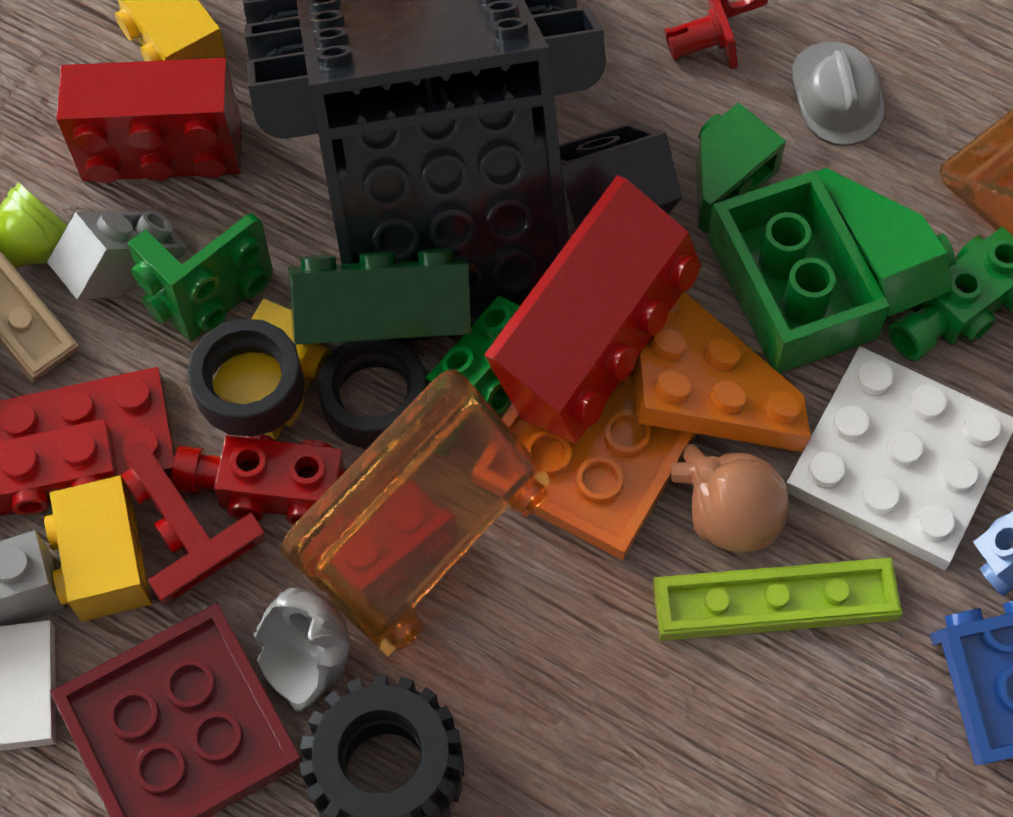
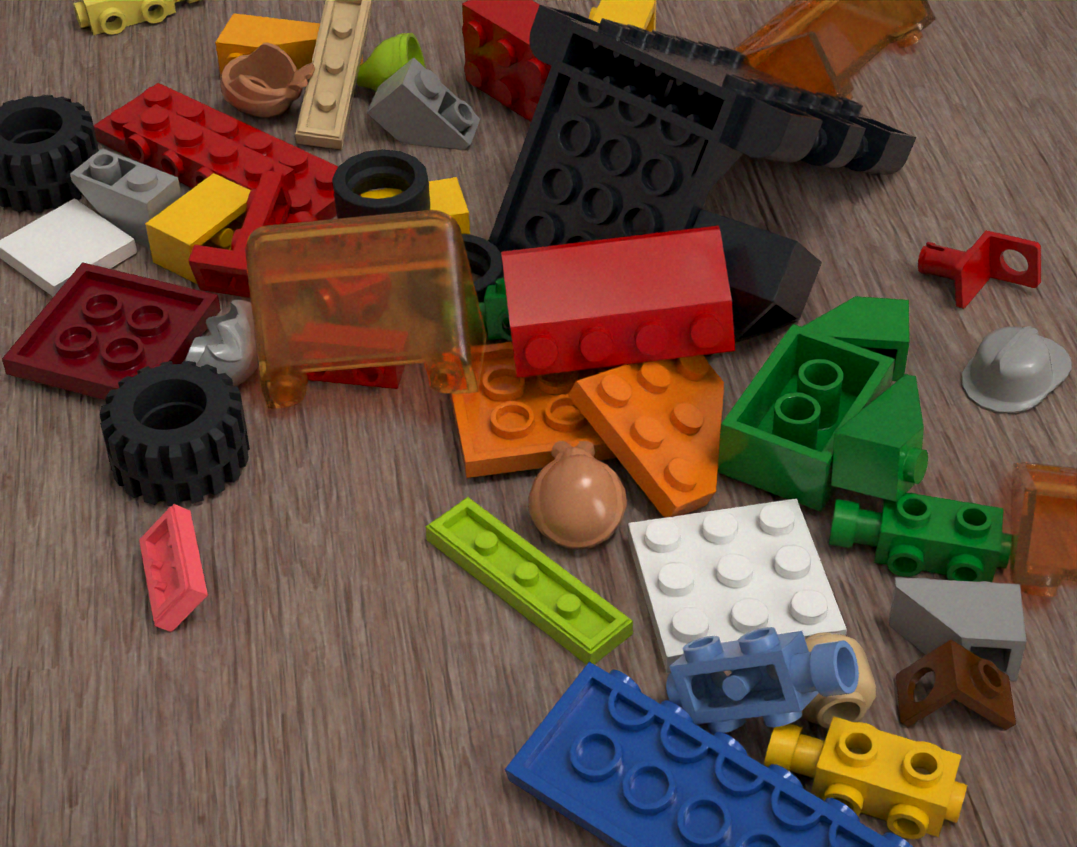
camera: 50 degrees right, 20 degrees down
(208, 284) = (449, 140): green bracket -> none
(379, 297) = (502, 202): dark green brick -> none

